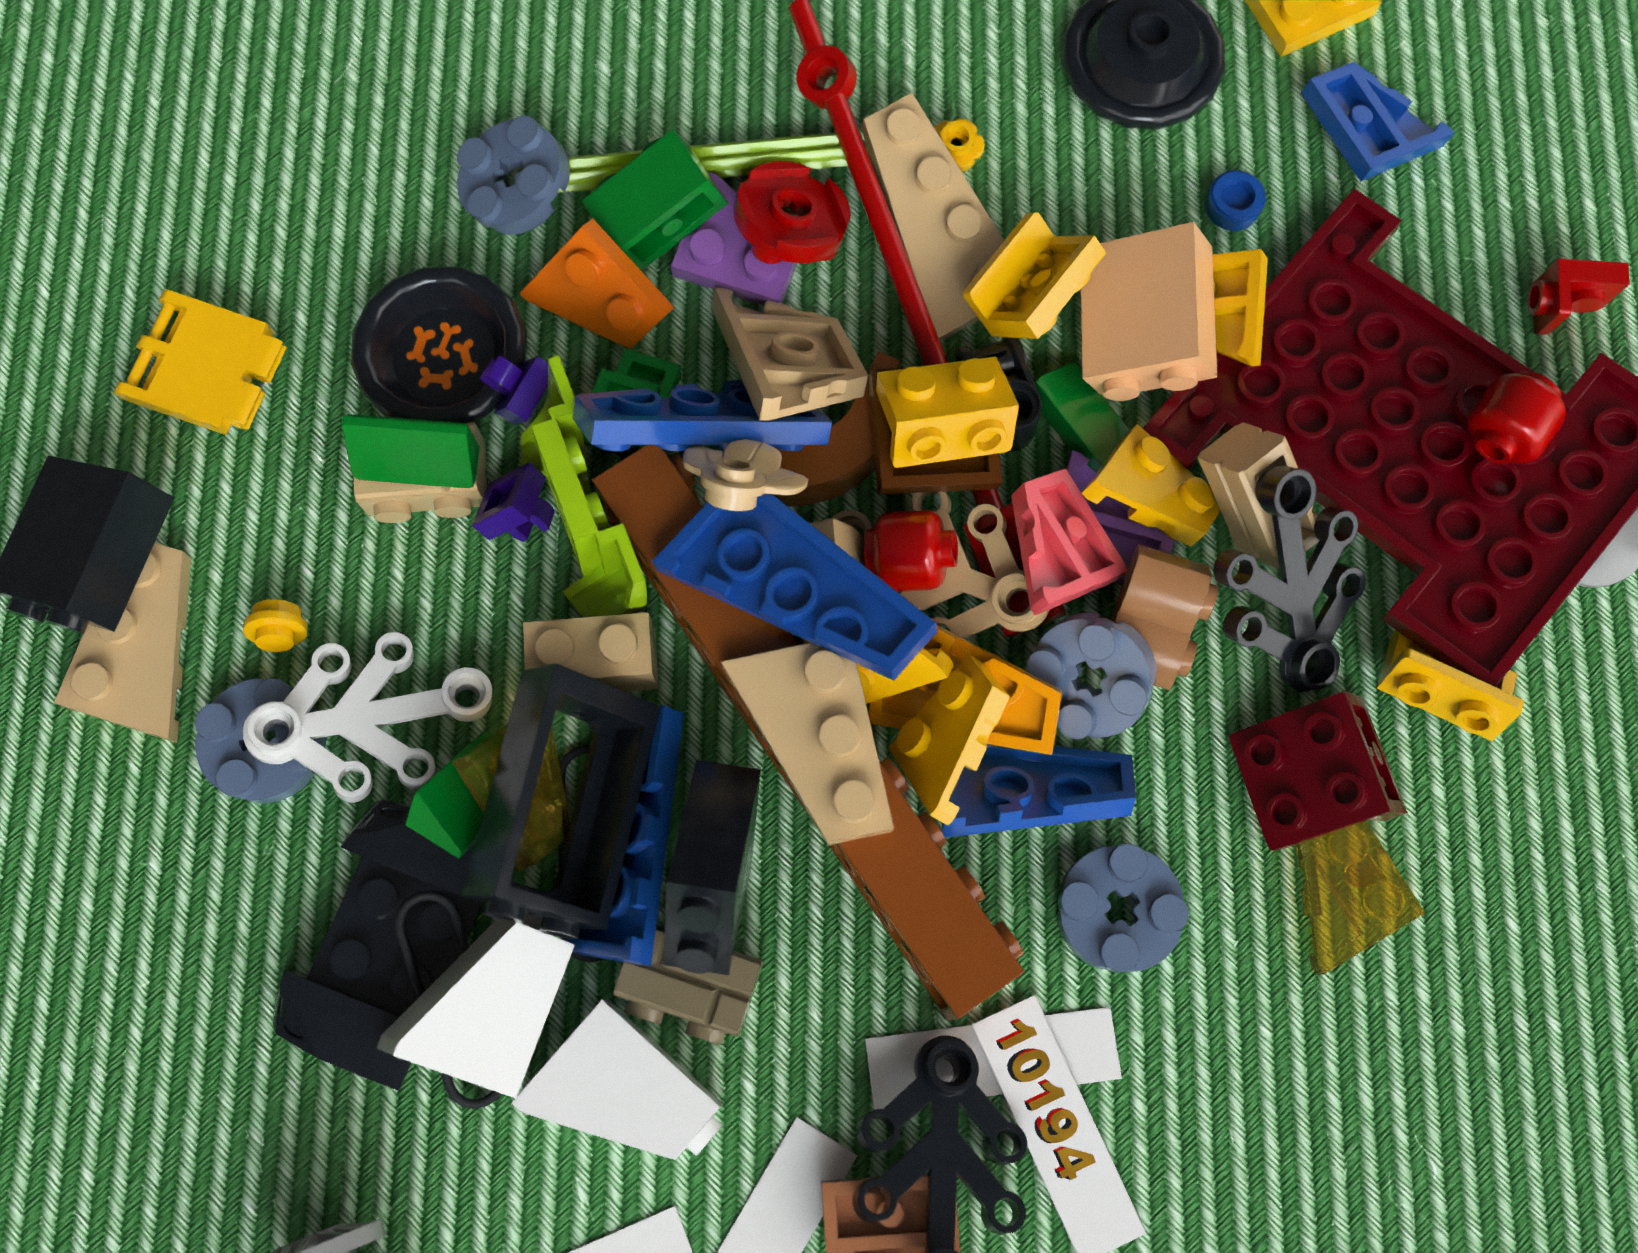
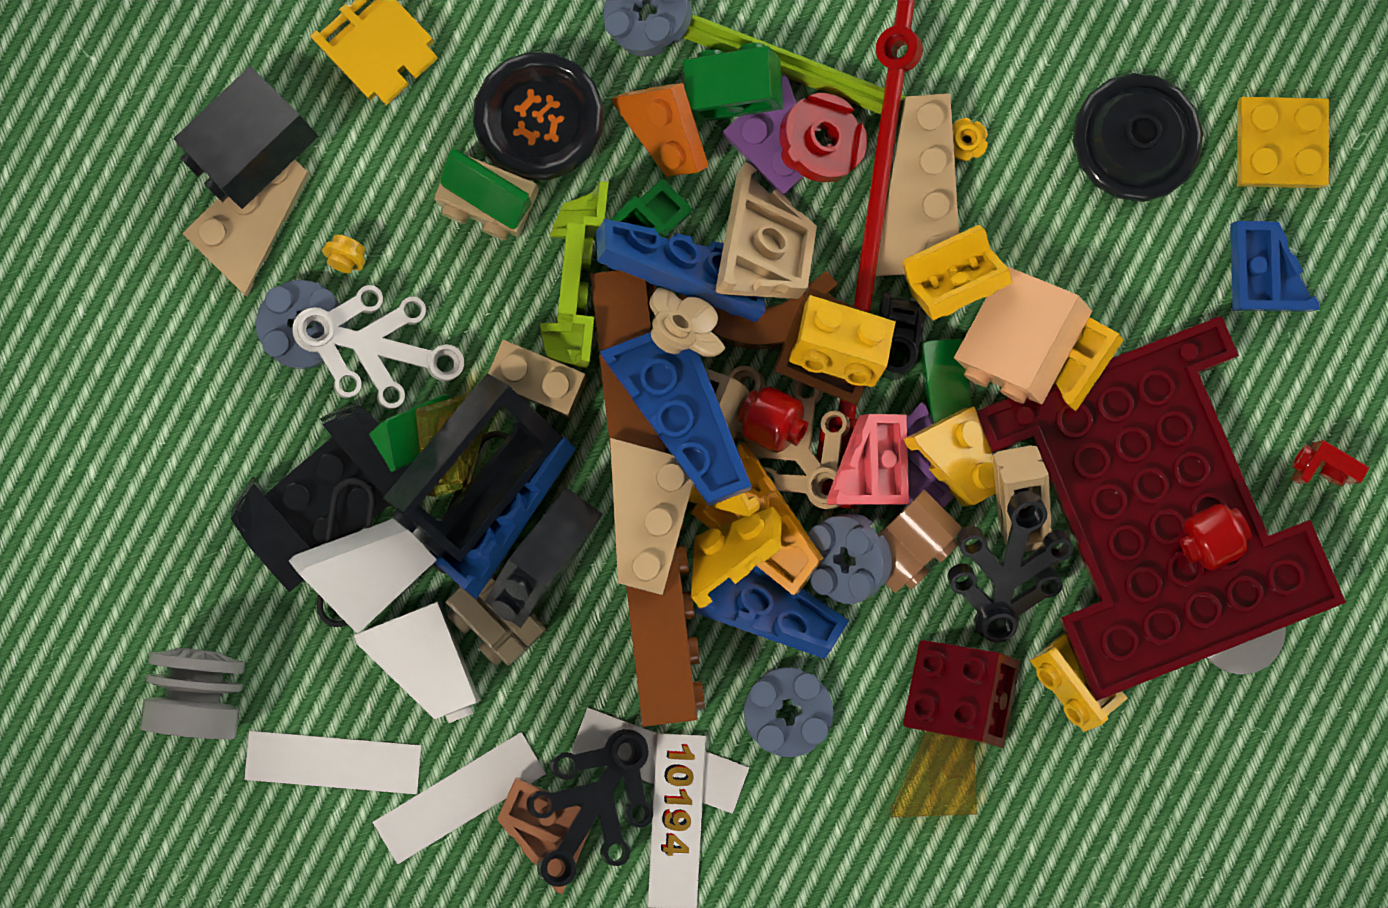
camera: 25 degrees right, 10 degrees up
(514, 505) = (535, 251): dark purple tile -> none
(520, 387) = (577, 178): dark purple tile -> none
(1235, 200) = (1139, 278): blue tile -> none

